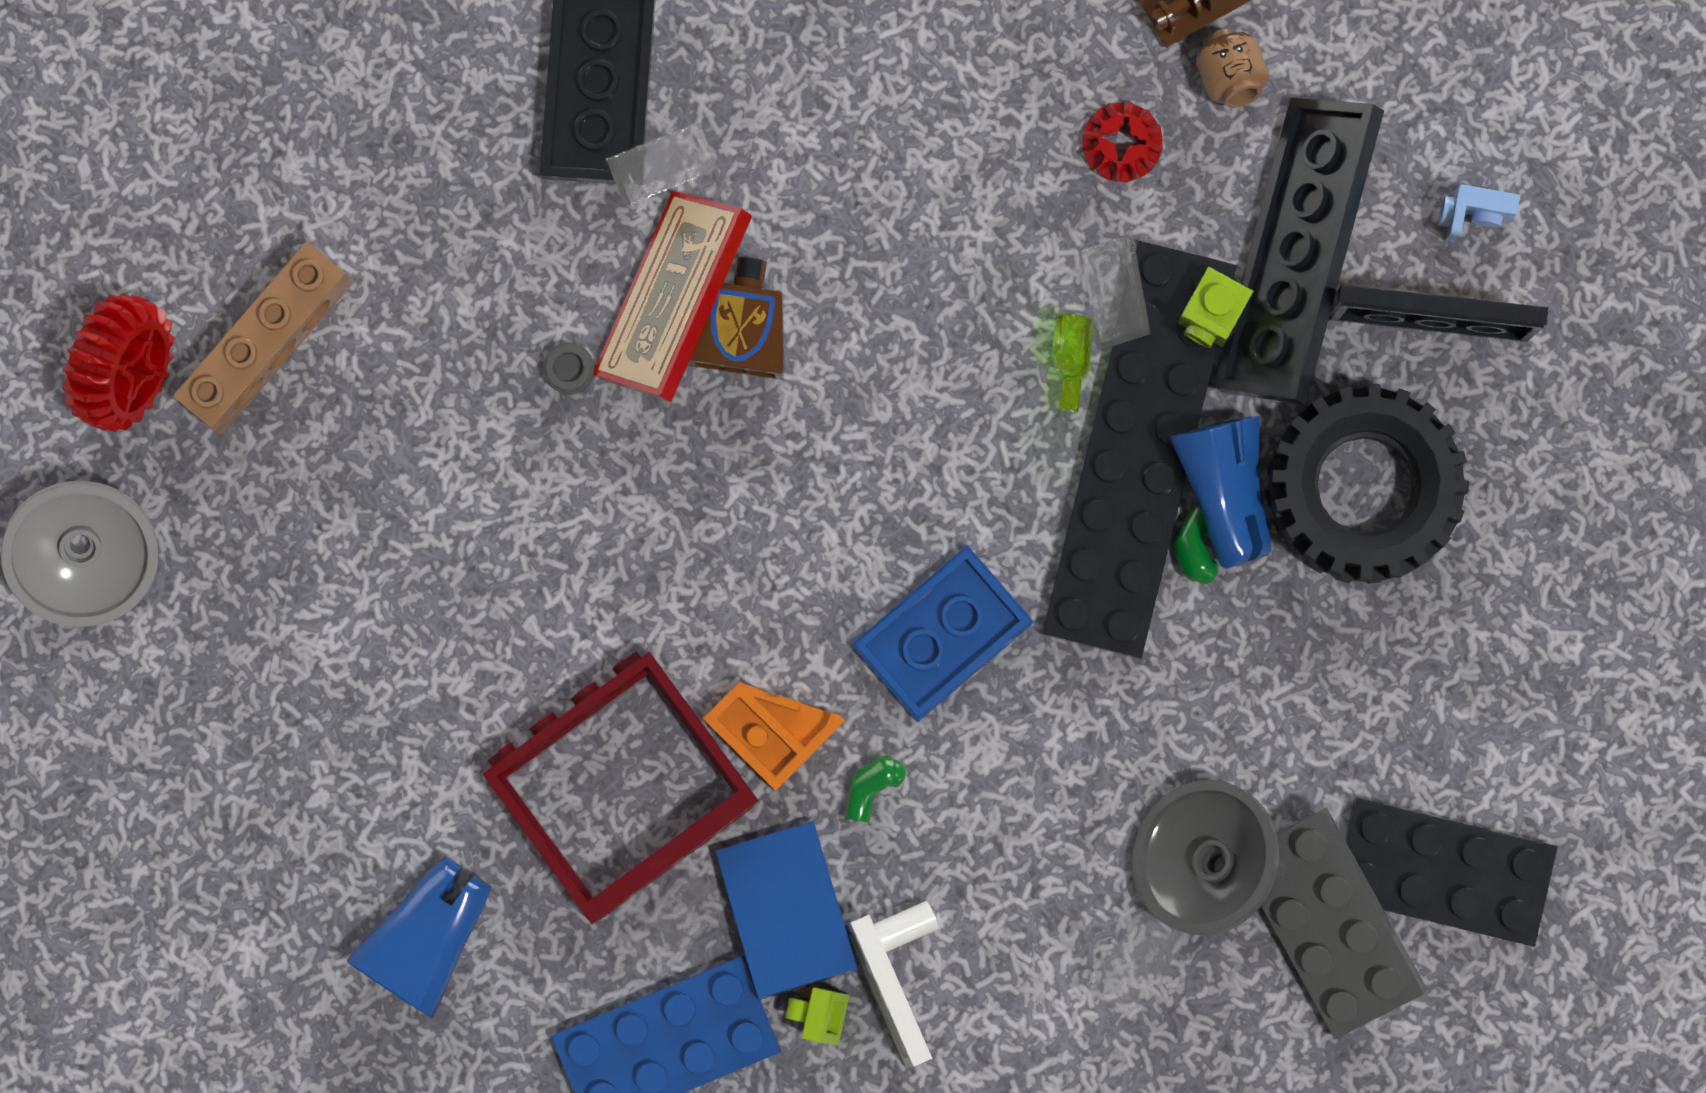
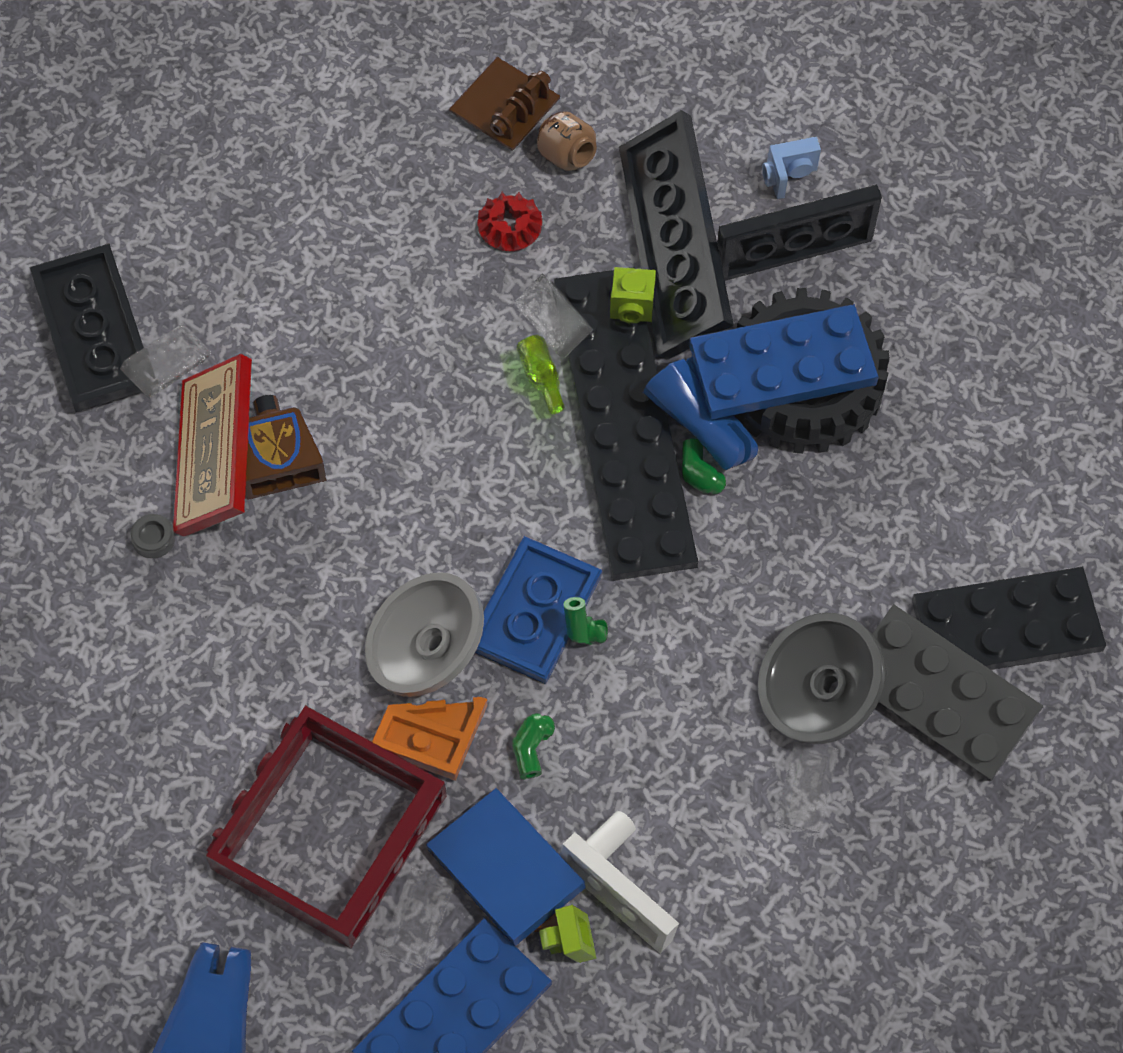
camera: 30 degrees left, 20 degrees down
(792, 607) = (424, 634): none -> light grey dish
(983, 681) = (581, 627): none -> green arm
(1338, 477) = (783, 361): none -> blue plate

